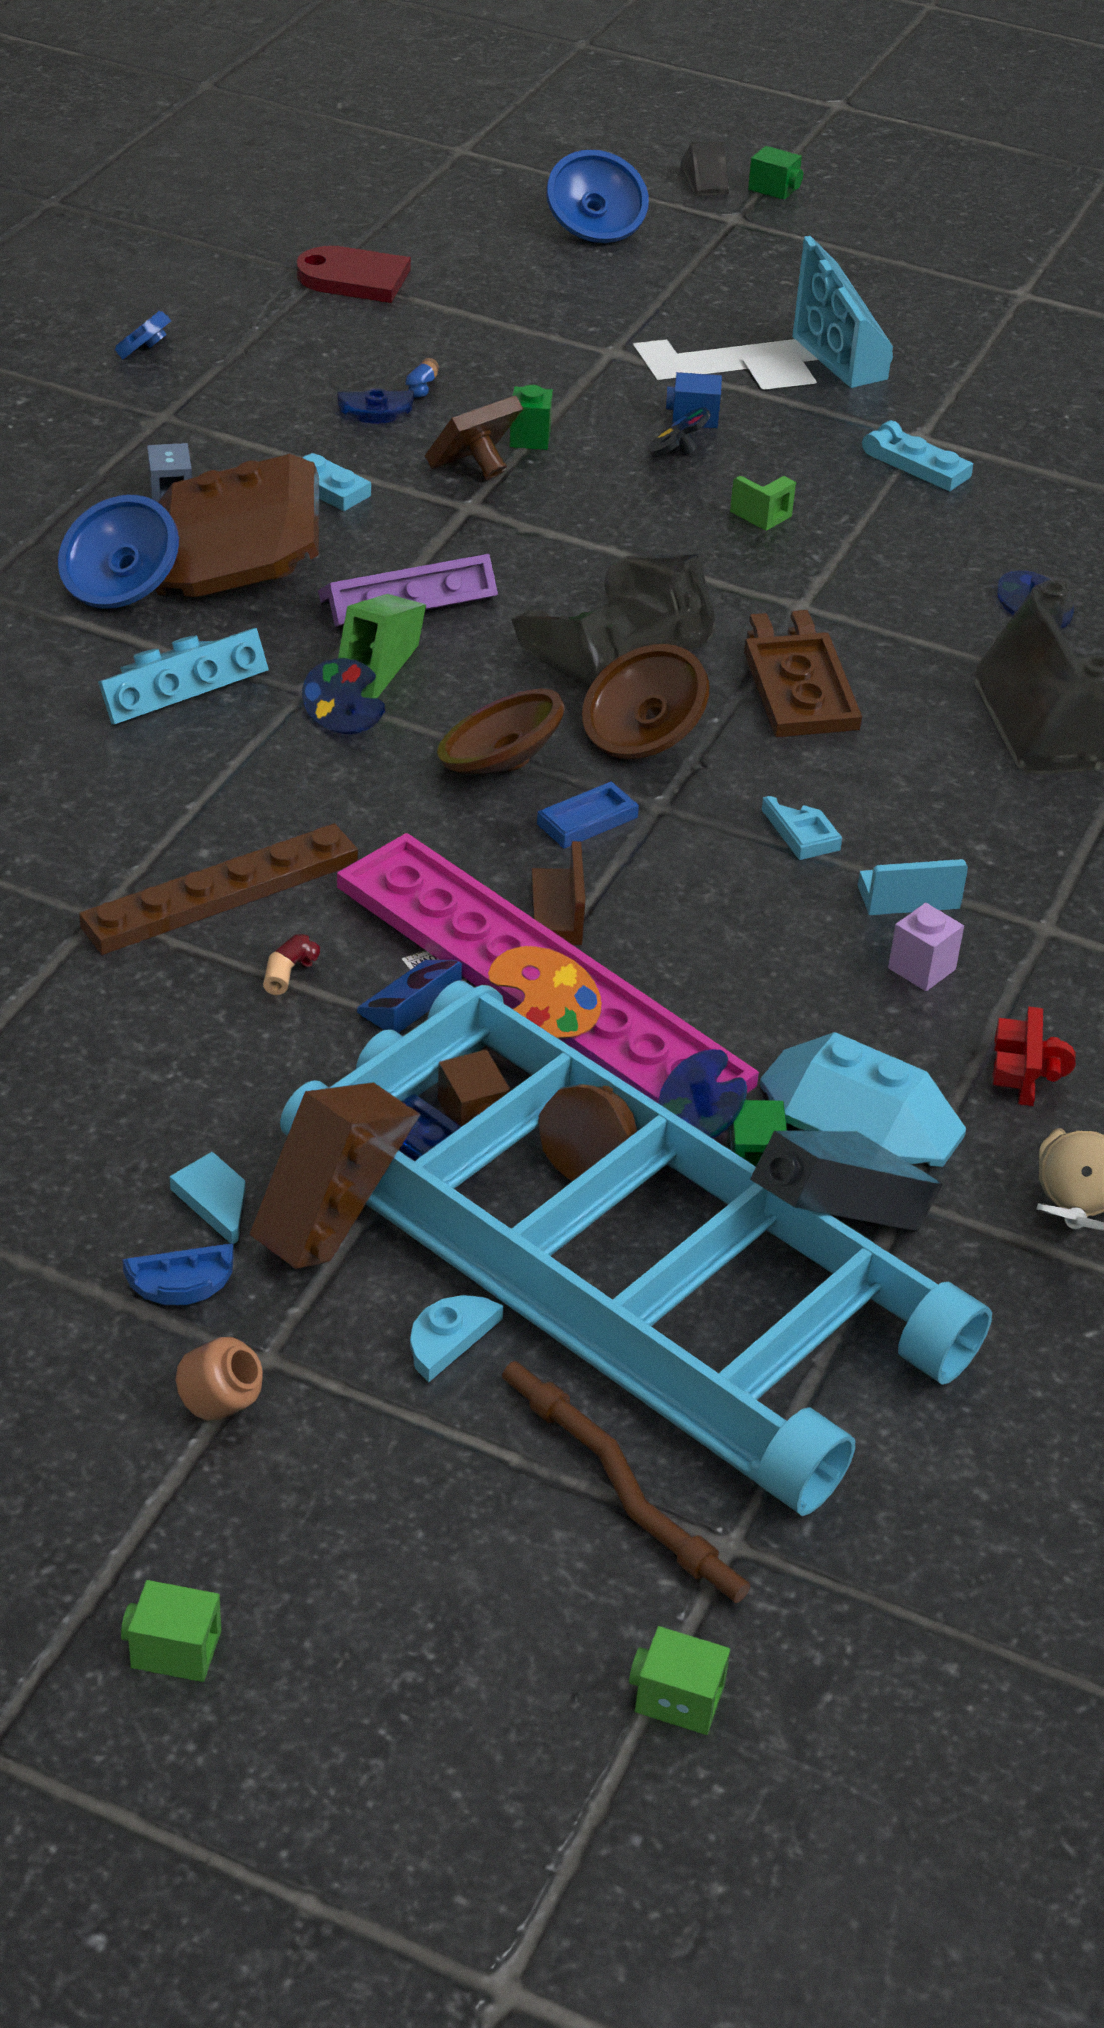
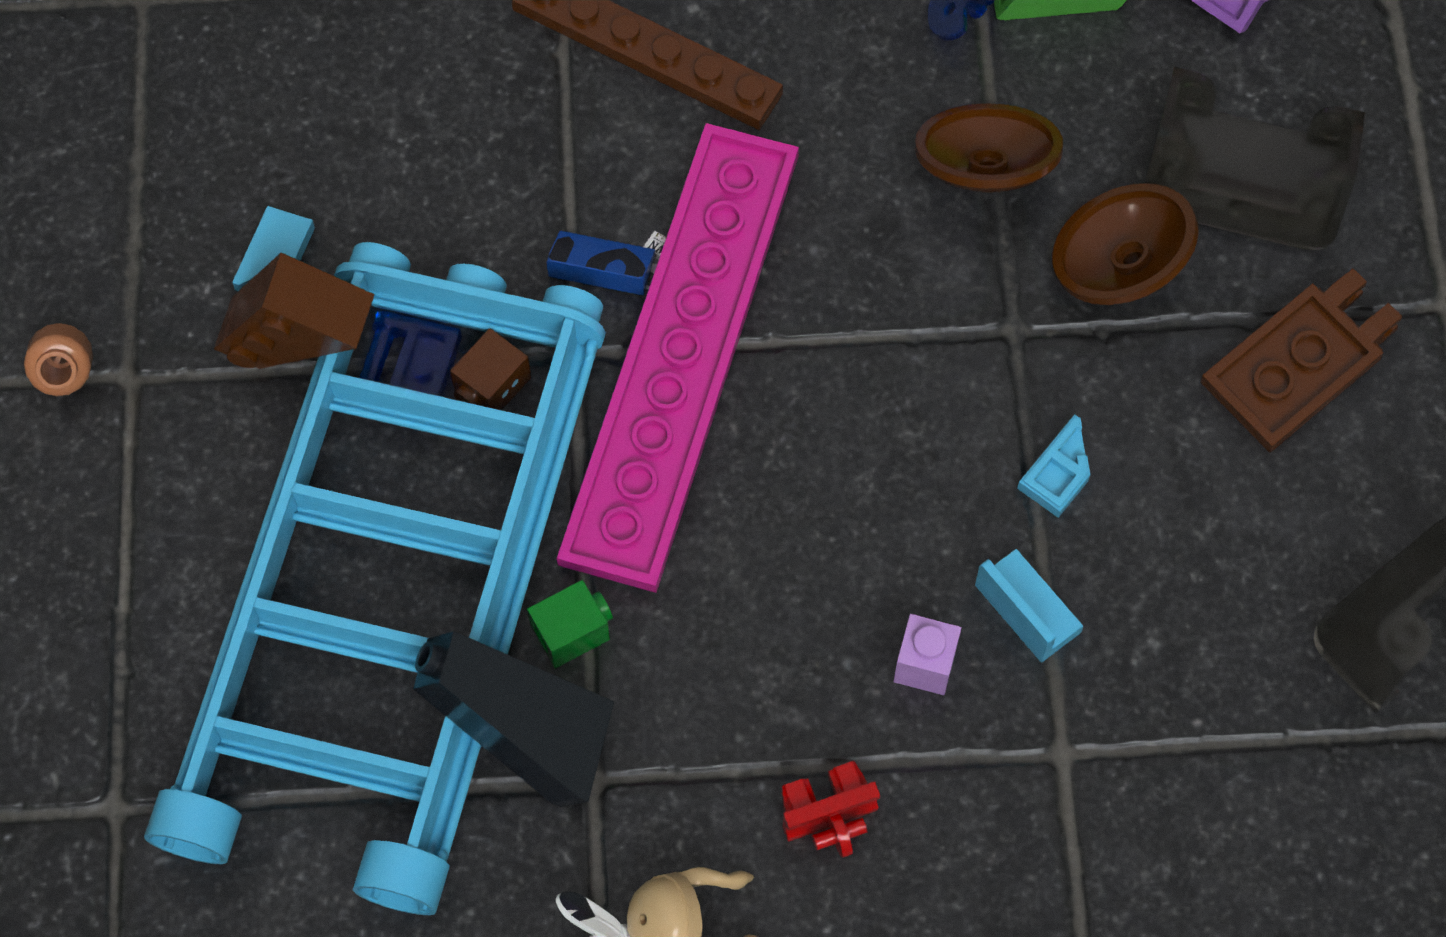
camera: 65 degrees right, 25 degrees up
(180, 1275) = (167, 274): blue plate -> none
(281, 961) = (579, 143): arm -> none
(449, 1329) = (218, 492): medium azure plate -> none
(560, 897) = (799, 315): reddish brown panel -> none
(560, 999) = (623, 379): orange piece -> none
(583, 1127) = (479, 483): reddish brown hat -> none
(587, 814) = (950, 277): blue tile -> none
(693, 1553) = (78, 786): reddish brown bar -> none
(697, 1096) = (563, 559): clear blue piece -> none
(852, 1087) = (666, 691): medium azure wedge -> none

